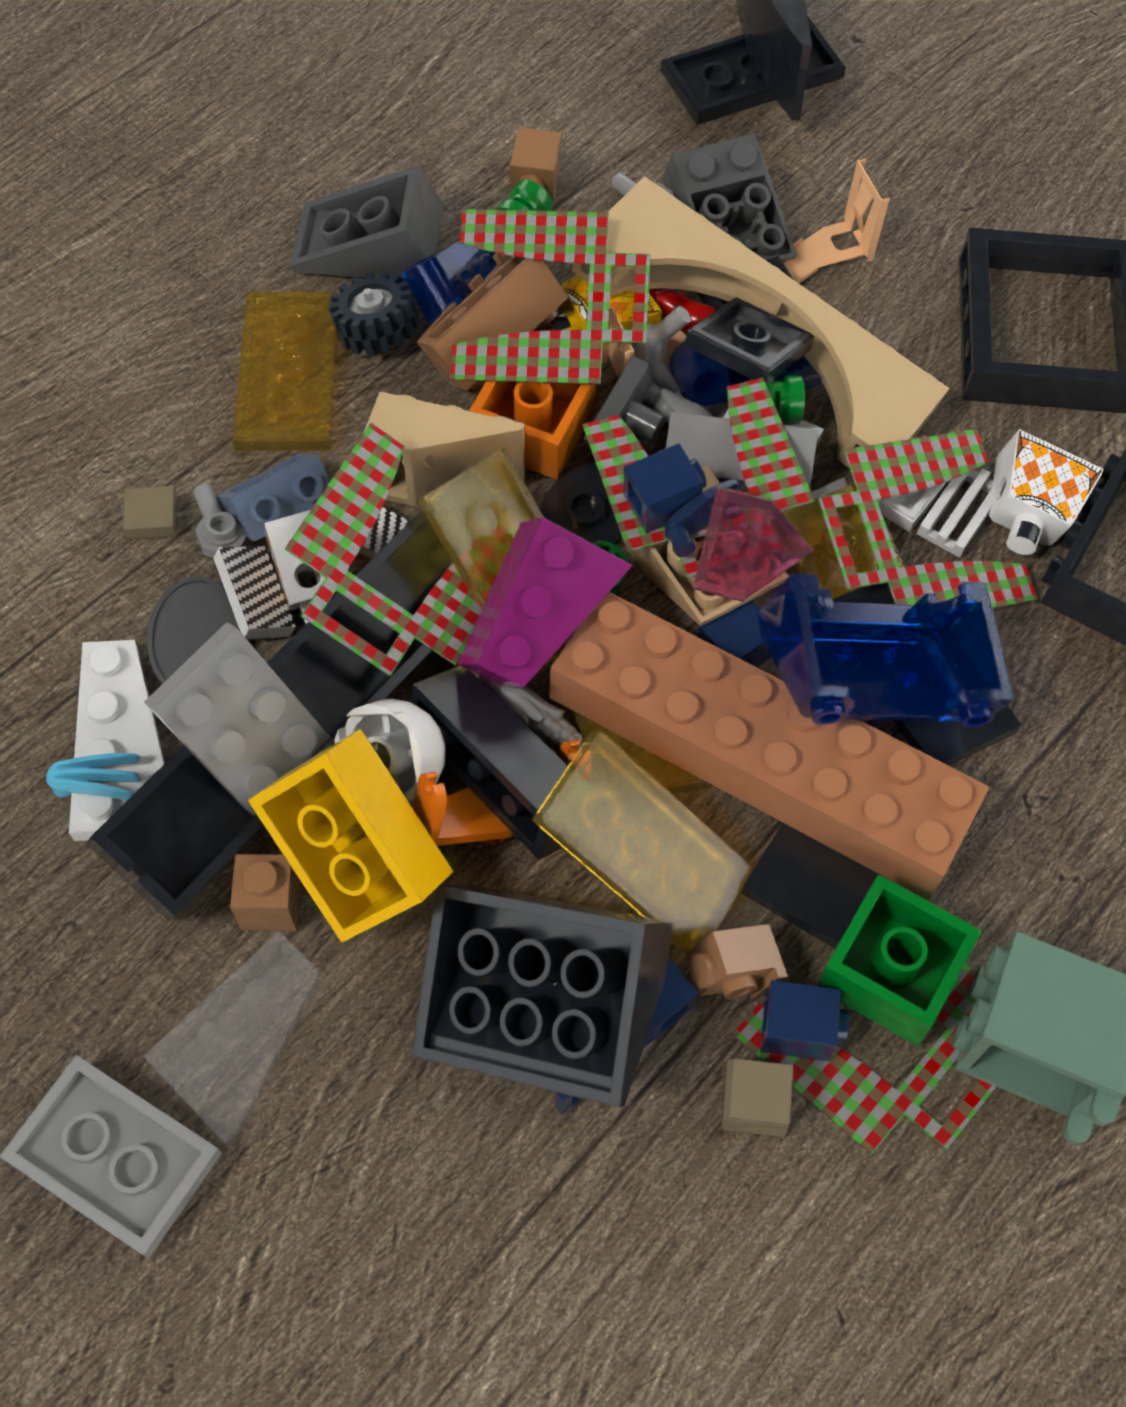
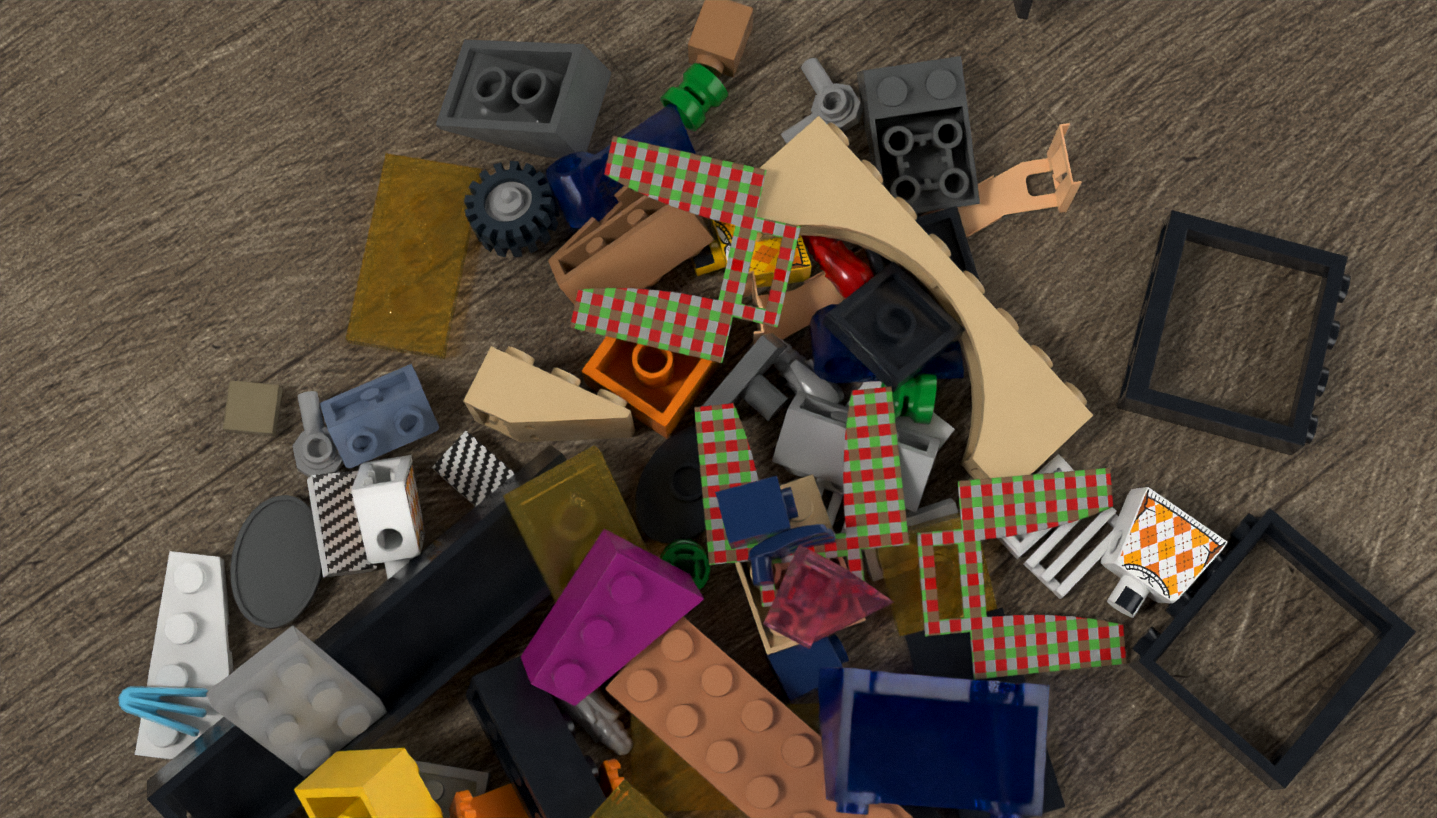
camera: 15 degrees right, 15 degrees up
(335, 535) = (416, 521): piece -> none
(403, 739) = (445, 742): white cylinder -> none
(655, 349) = (796, 309): light grey piece -> none

